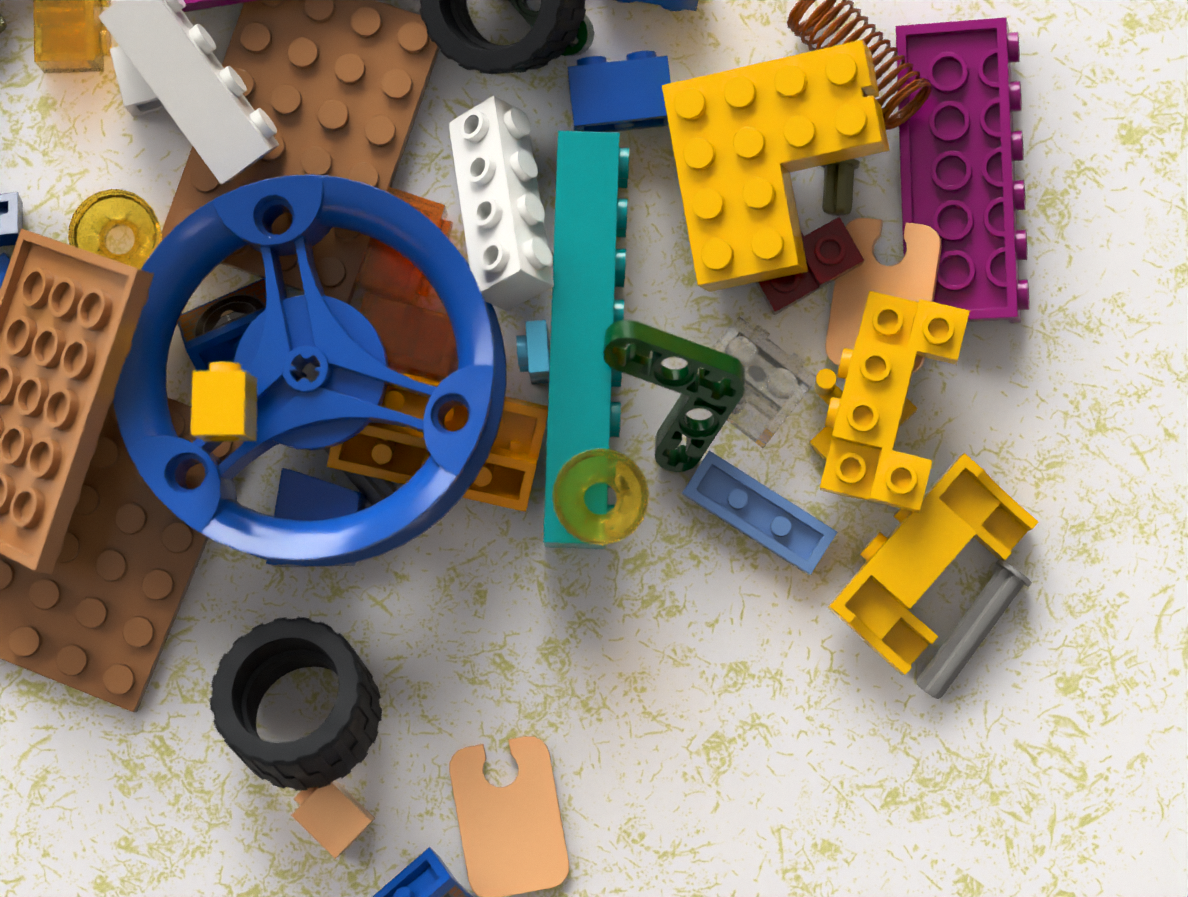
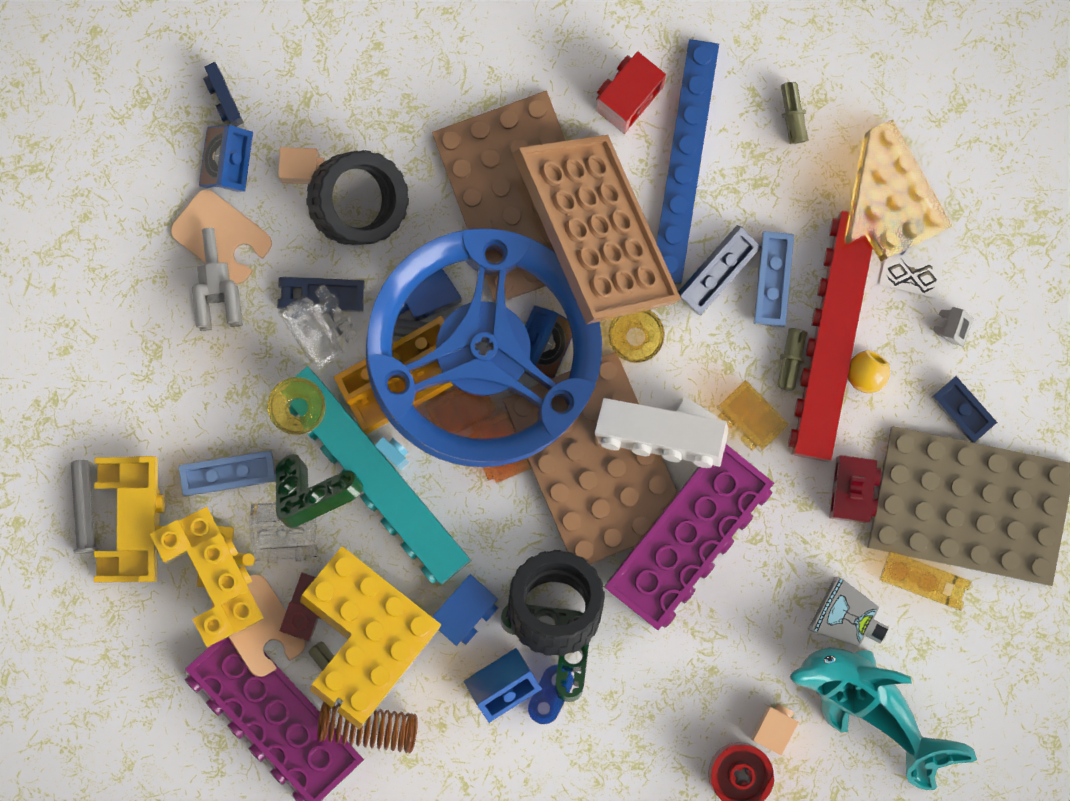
camera: 140 degrees right, 0 degrees up
(224, 404) = (501, 294): yellow brick -> none
(449, 630) = (348, 292): none -> dark blue plate
(500, 590) = (311, 330): none -> clear brick
(501, 203) = (469, 505): white brick -> none
(570, 758) = (214, 287): none -> light grey plant

